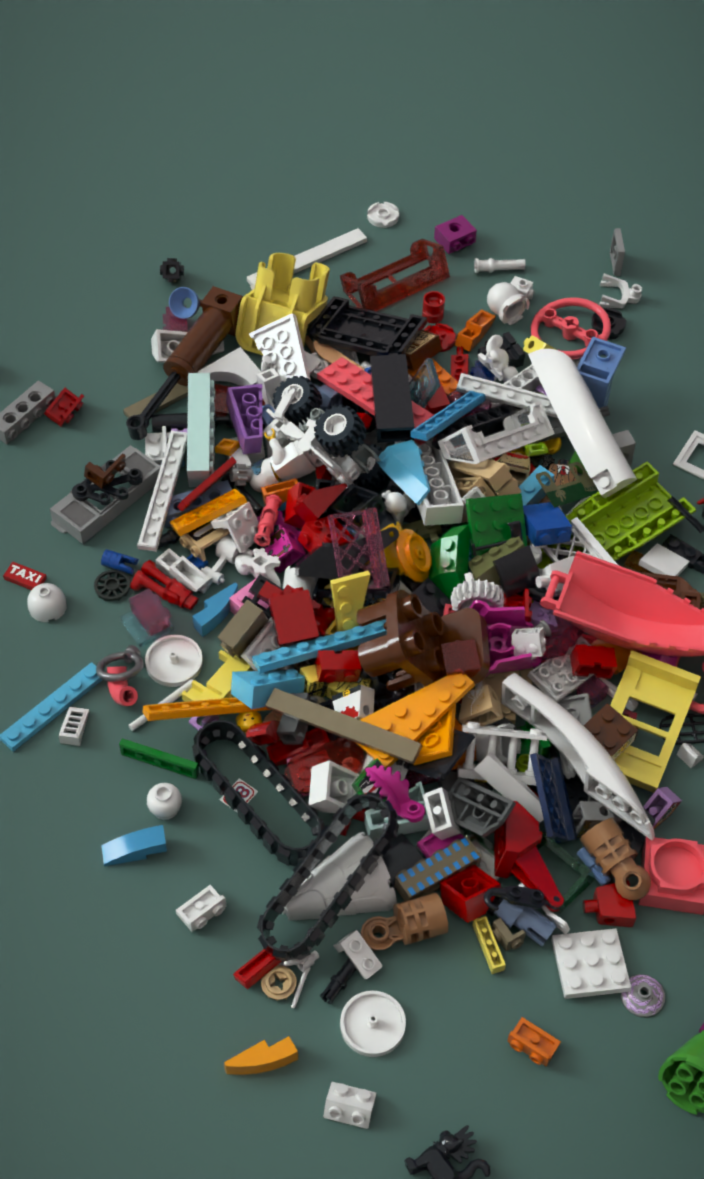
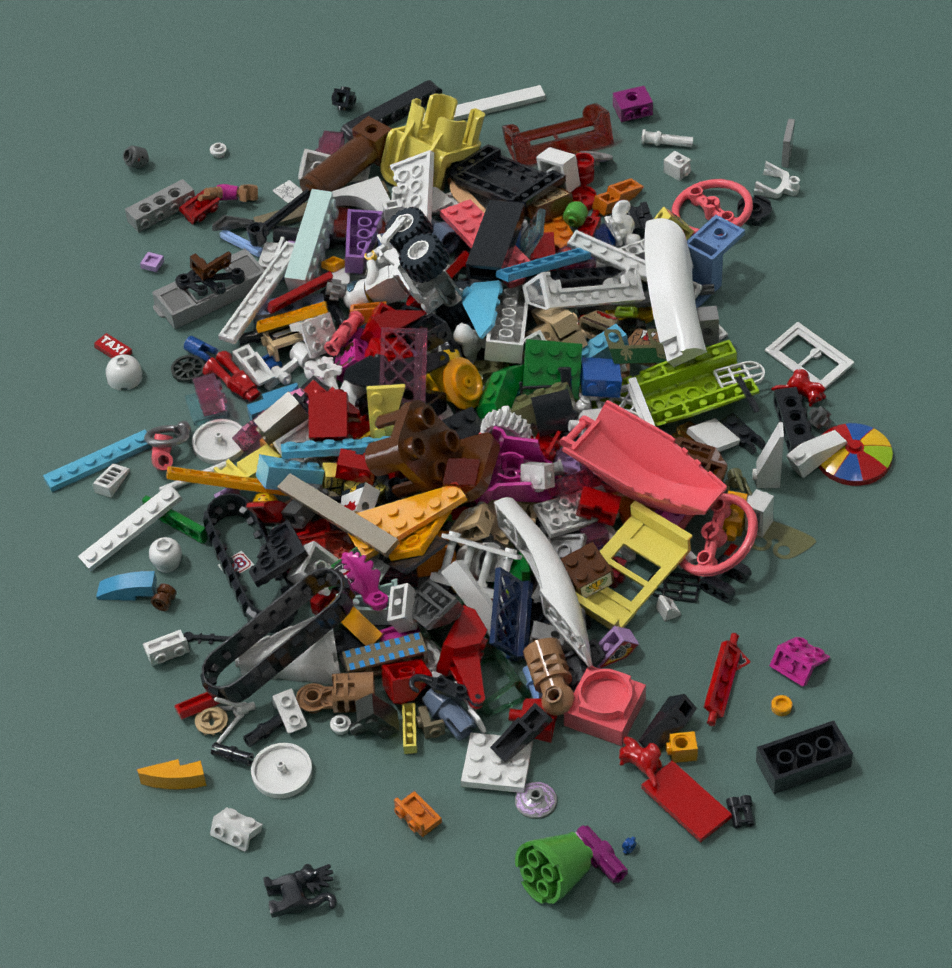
camera: 20 degrees right, 5 degrees down
(34, 474) = (152, 262): none -> lavender plate
(61, 343) = (218, 150): none -> white plate
(92, 386) = (231, 192): none -> medium nougat piece
(101, 418) = (230, 222): none -> dark grey tile
(116, 779) = (130, 527): none -> white plate
(119, 438) = (240, 242): none -> light blue axle
(147, 375) = (288, 191): none -> white sticker
(176, 302) = (334, 125): medium blue piece -> none
(178, 850) = (164, 596): none -> reddish brown wheel
(208, 645) = (247, 435): none -> clear pink brick
(229, 270) = (396, 108): none -> black beam
(243, 885) = (190, 637): none -> black piece
(295, 781) = (279, 554): none -> black plate
(315, 1017) = (232, 754): none -> black pin
(383, 215) = (571, 76): white tile -> none
(403, 844) = (361, 627): none -> light orange tile
(412, 961) = (340, 729): none -> white plate
(416, 304) = (561, 162): none -> white brick
(446, 355) = (575, 214): none -> bright green head
(447, 292) = (598, 156): none -> light grey dish
(453, 942) = (375, 716): none -> pearl dark grey brick
(507, 302) = (656, 175): white tile -> none
(610, 928) = (521, 732): none -> black slope
(670, 489) = (746, 370): none -> white window

